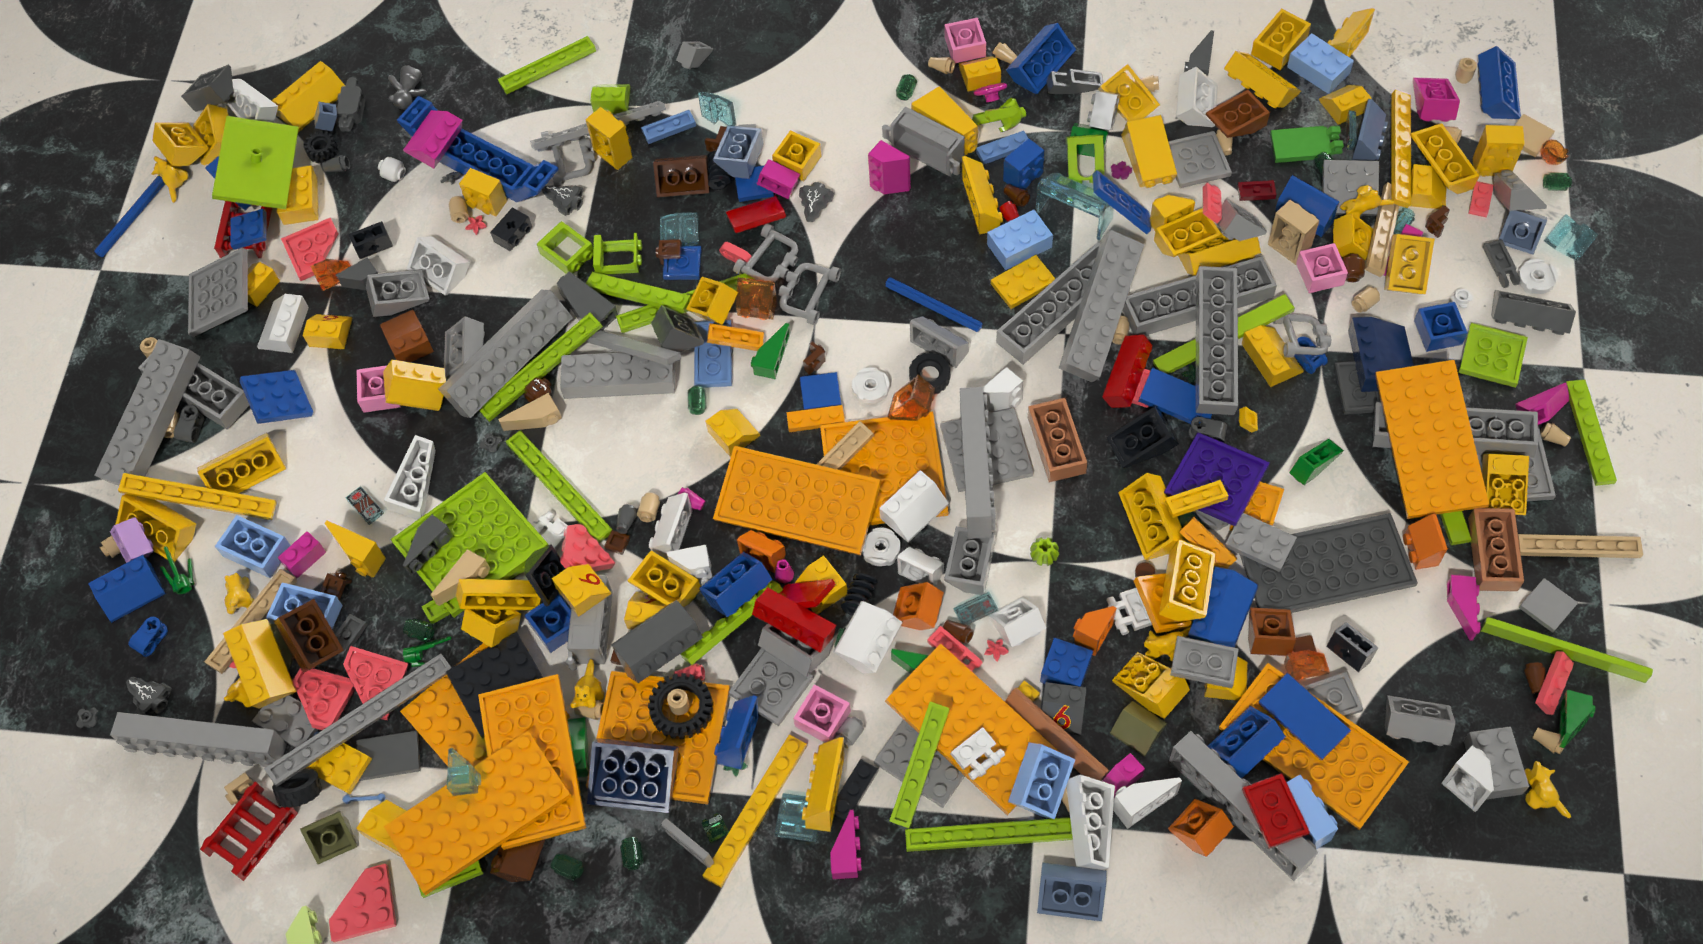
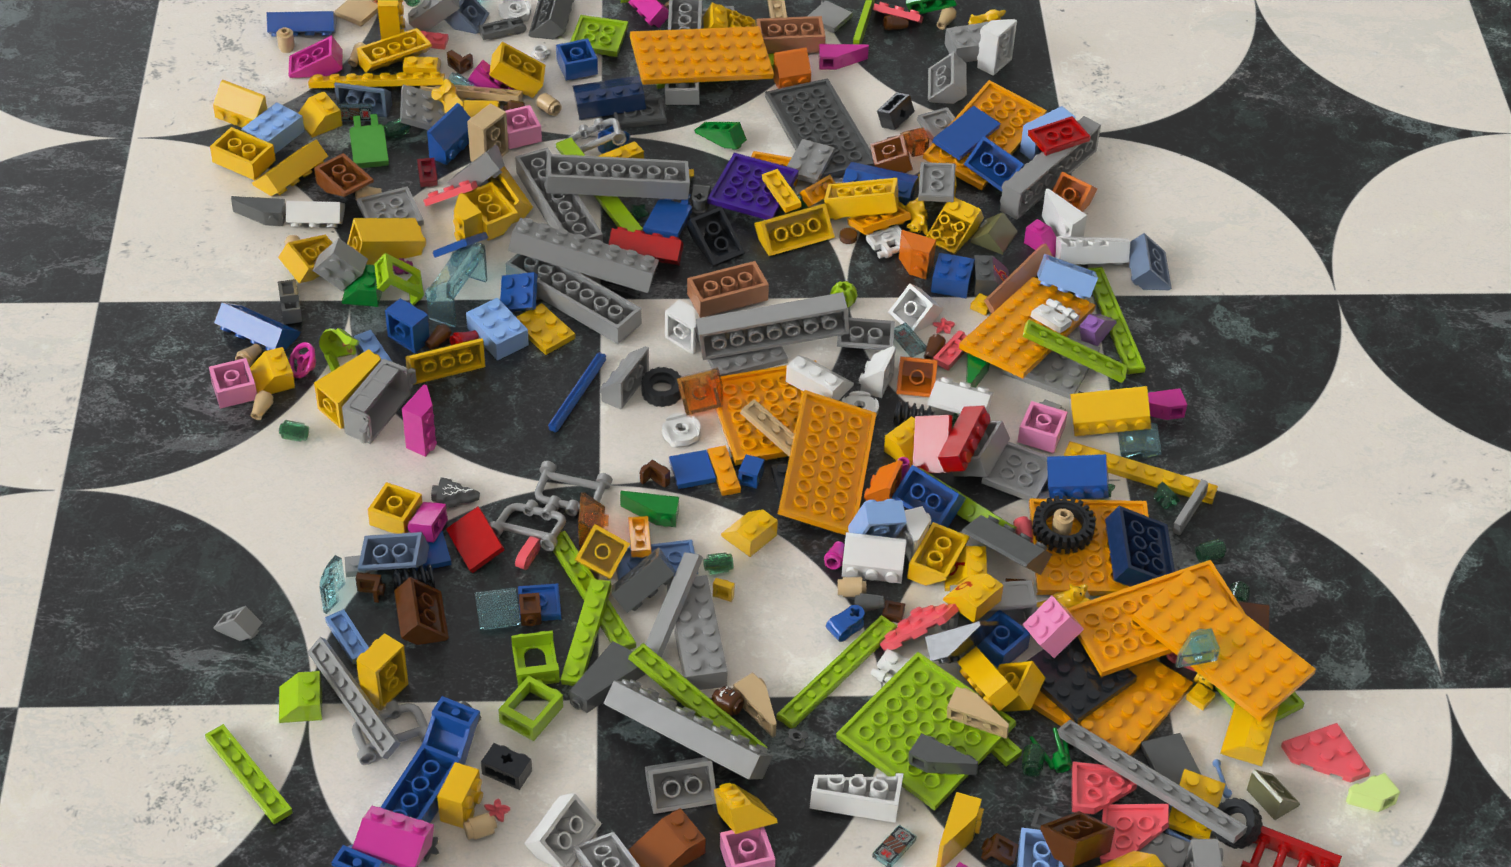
camera: 105 degrees left, 15 degrees down
(533, 655) = (1053, 626): none -> bright pink brick
(606, 497) = (846, 622): none -> blue piece
(664, 401) = (723, 589): none -> yellow plate
(697, 523) = (879, 518): none -> light blue brick
(806, 438) = (751, 471): none -> blue brick
(969, 805) = (1095, 328): none -> medium lavender slope
(1062, 254) = (519, 291): none -> blue plate

